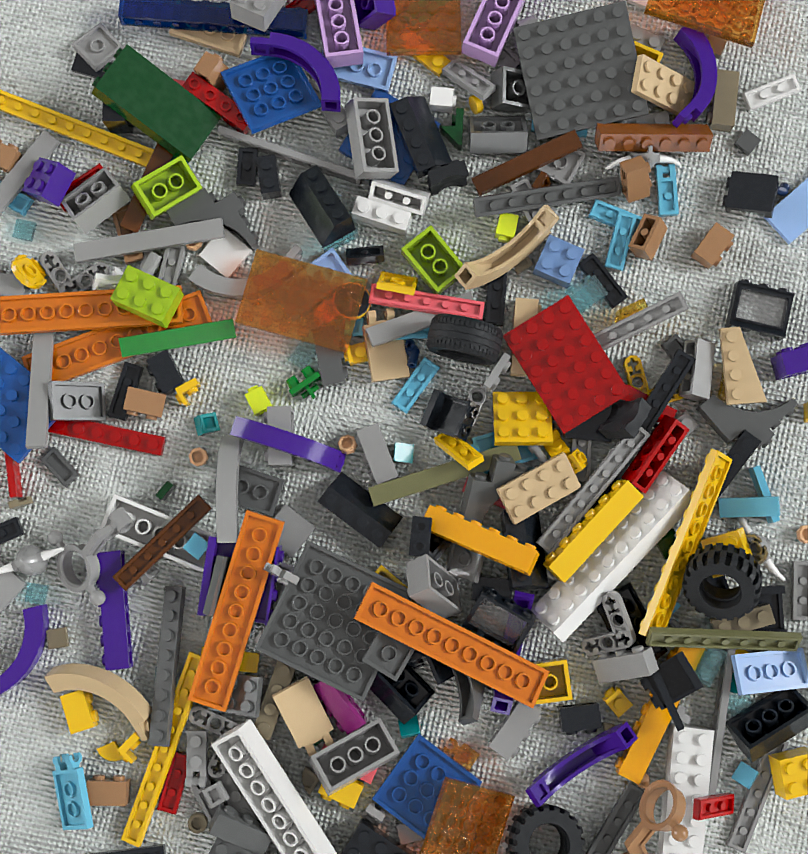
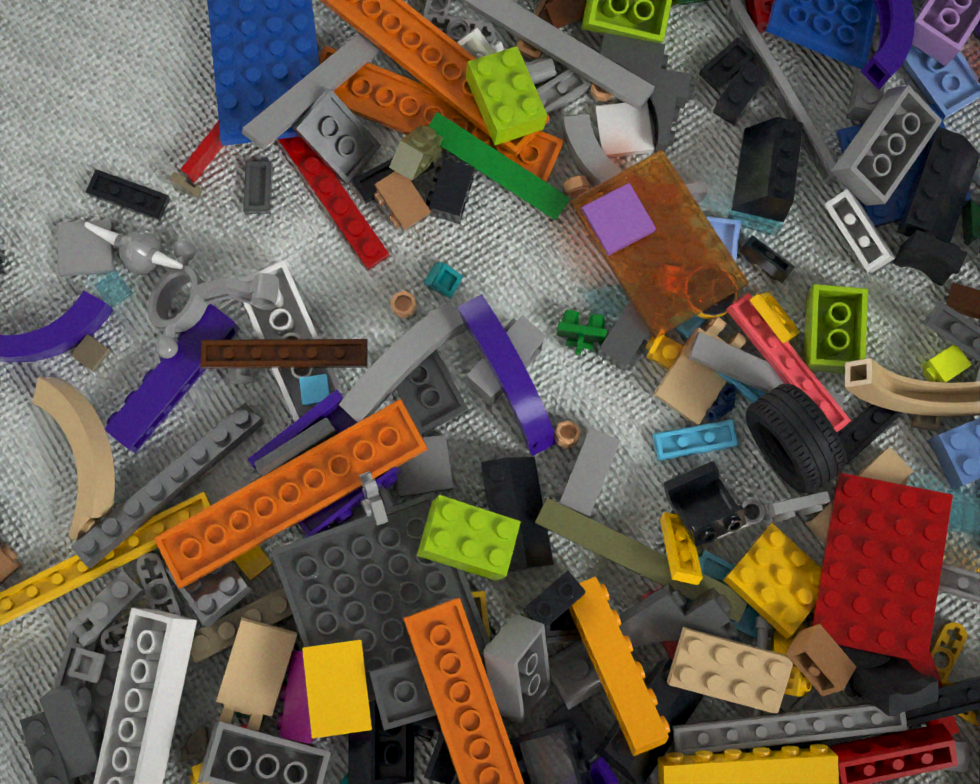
camera: 40 degrees right, 5 degrees down
(79, 711) = (39, 446): yellow brick -> none
(110, 751) = (29, 518): yellow tile -> none
(129, 371) = (417, 152): none -> olive brick
(131, 743) = (41, 534): yellow bracket -> none
(166, 490) = (338, 307): dark green tile -> none
(174, 784) = (56, 613): red tile -> none
(189, 388) = (458, 226): yellow bracket -> none
(197, 822) = (42, 677): dark tan tile -> none
(229, 308) = (575, 186): none -> light nougat tile
(258, 400) = (518, 302): neon yellow brick -> none
(269, 308) = (618, 219): none -> medium lavender tile
(348, 547) = (468, 538): none -> lime brick
(353, 684) = (336, 689): none -> yellow tile
(381, 215) = (822, 235): white brick -> none
(403, 452) = (617, 497): slope -> none
(578, 440) = (821, 660): none -> medium nougat brick

